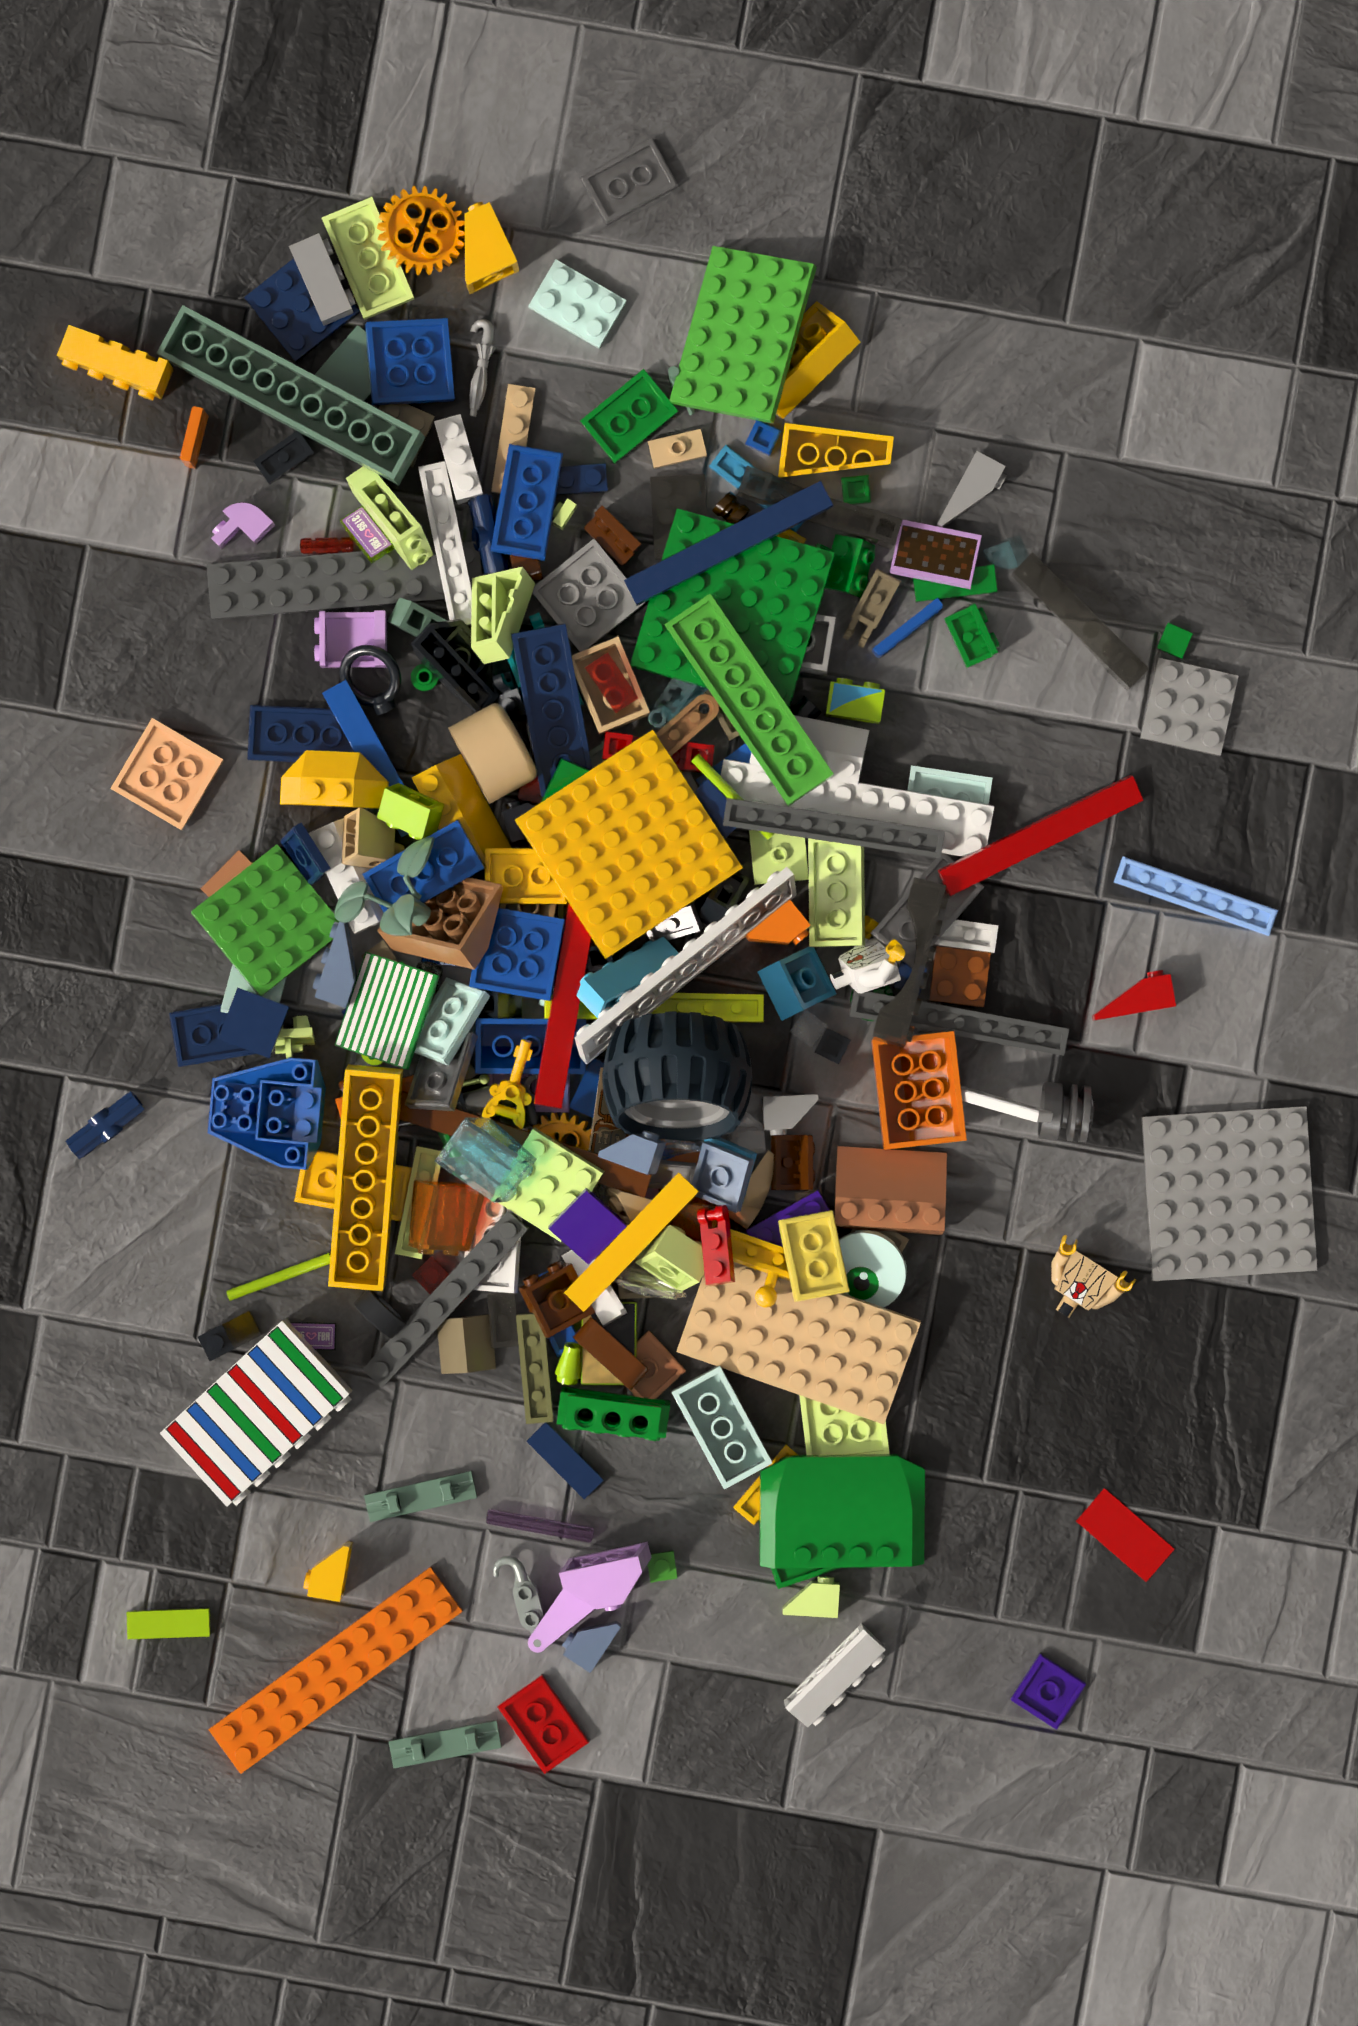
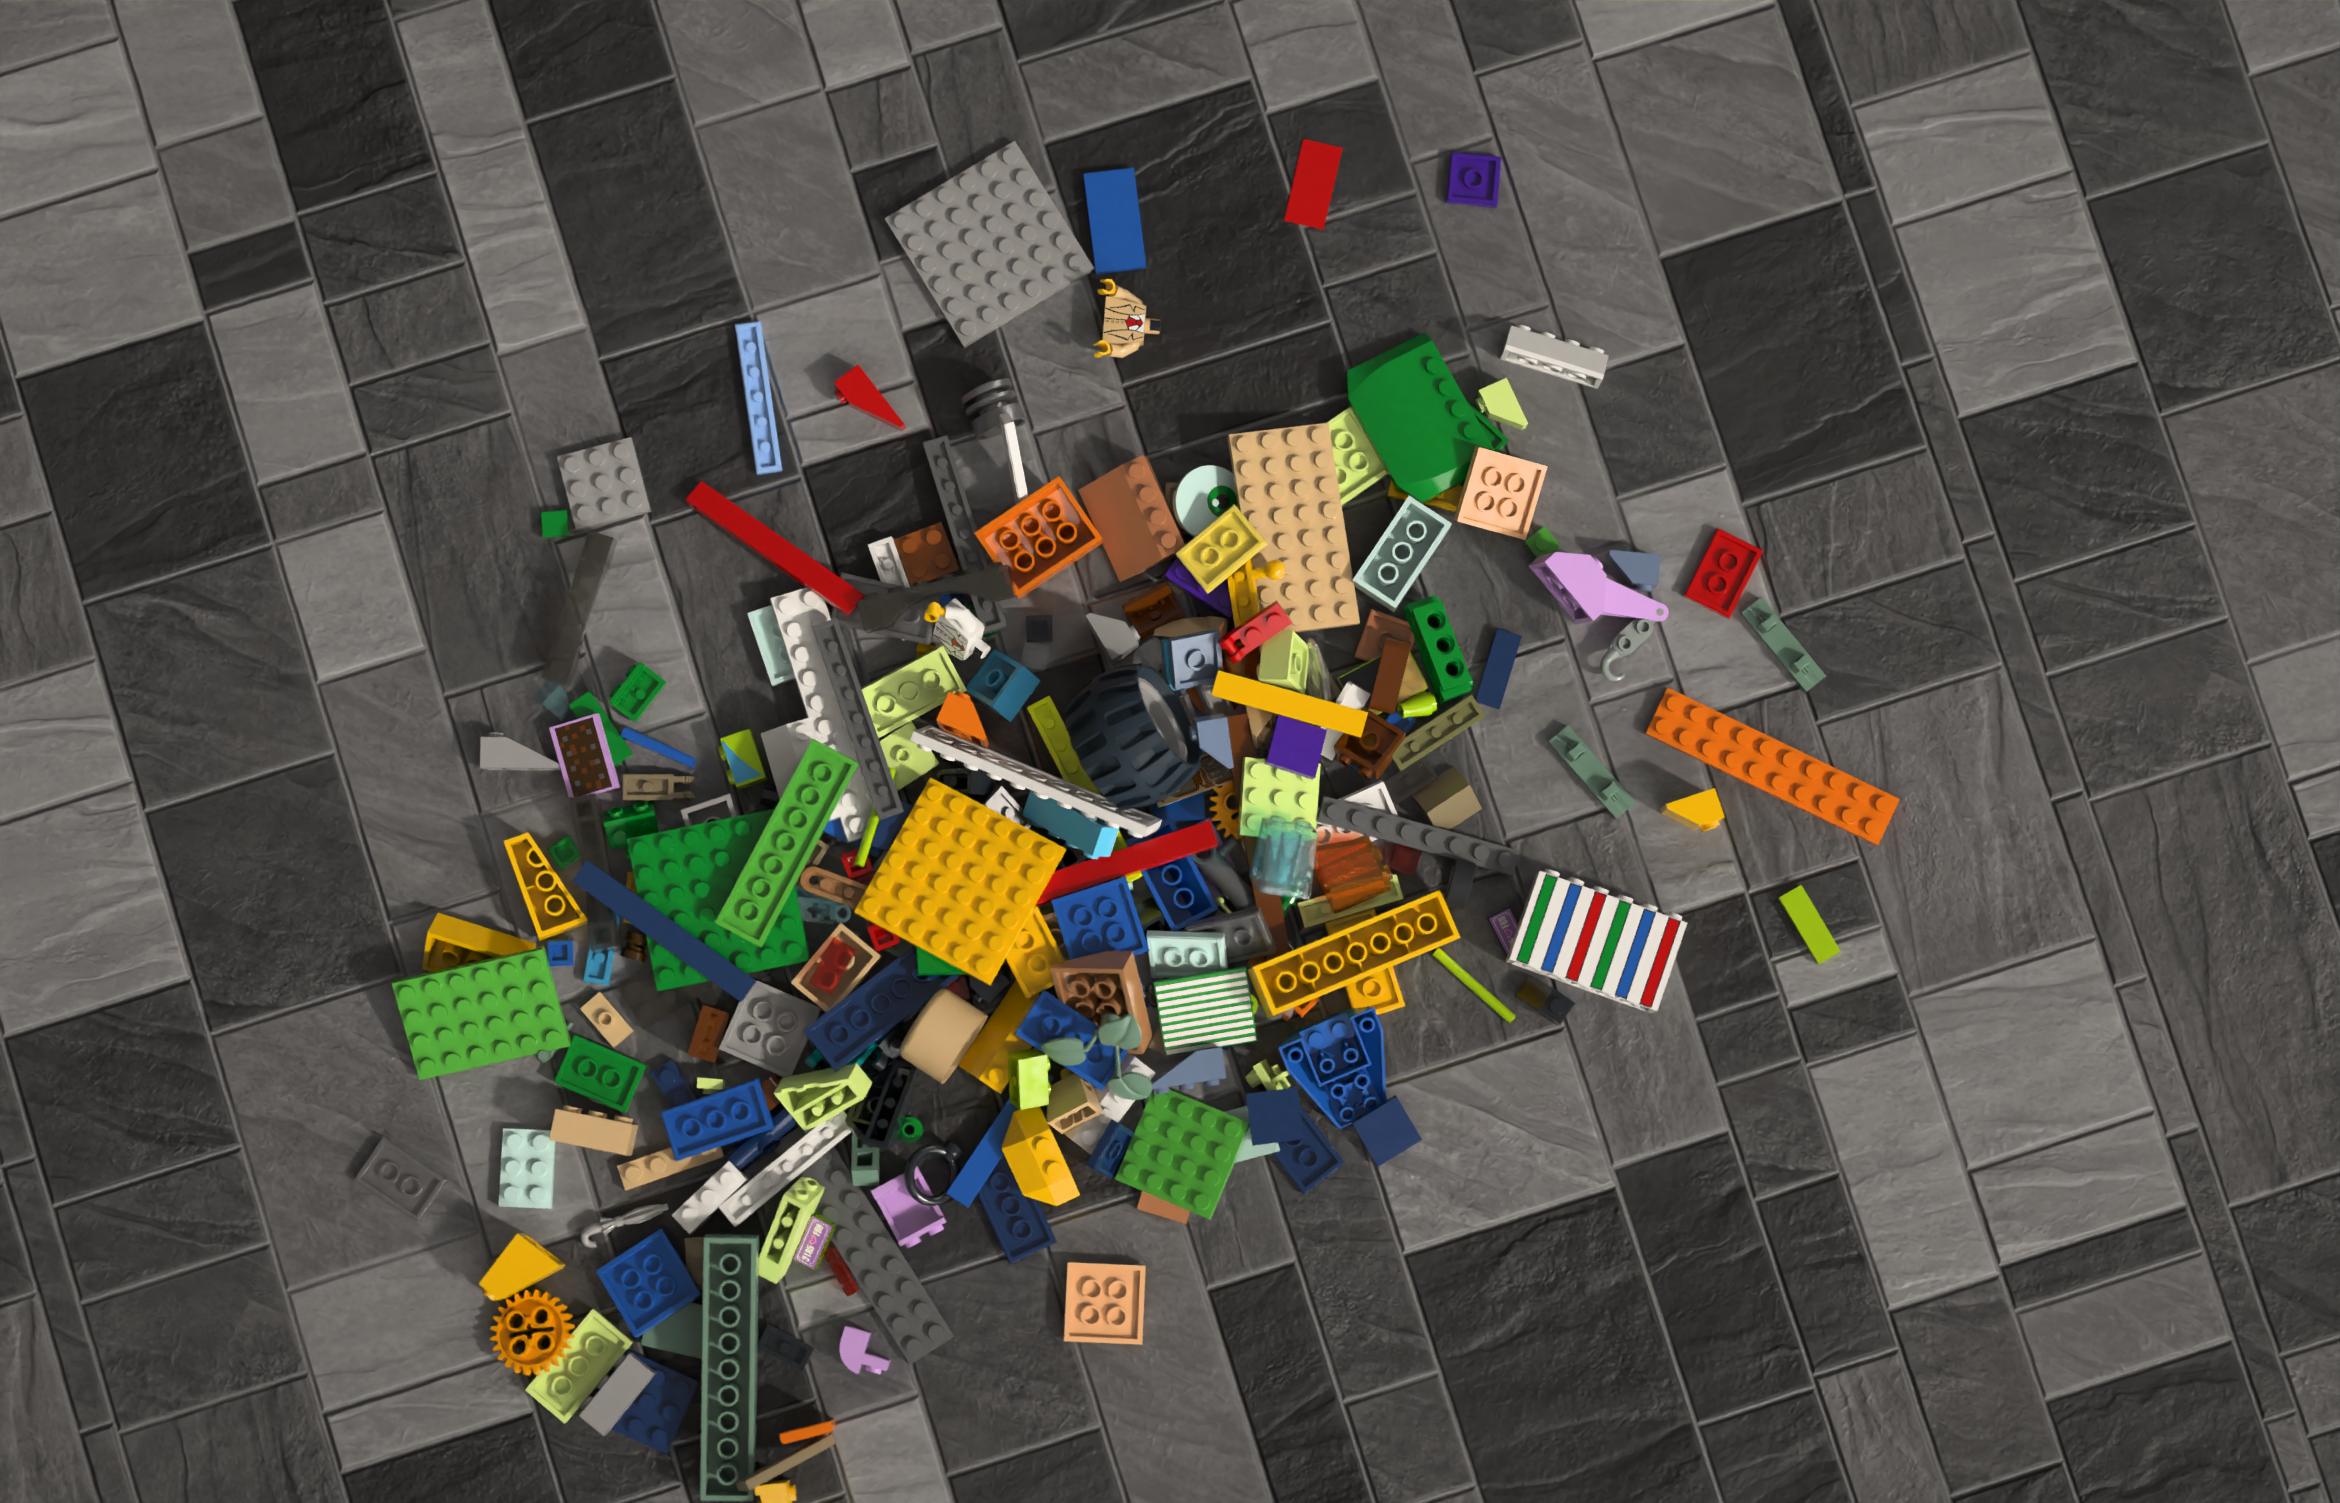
camera: 120 degrees left, 5 degrees down
(105, 1125) = (1426, 1197): dark blue piece -> none
(175, 399) = (785, 1462): none -> dark tan tile
(187, 1121) = (1386, 1130): none -> dark blue tile
(511, 1089) = (1216, 871): yellow piece -> none
(539, 1525) = (1562, 661): clear purple axle -> none
(577, 382) = (594, 1130): none -> tan brick
(729, 1552) = (1500, 493): none -> light nougat plate
(1188, 1325) = (1114, 221): none -> blue tile

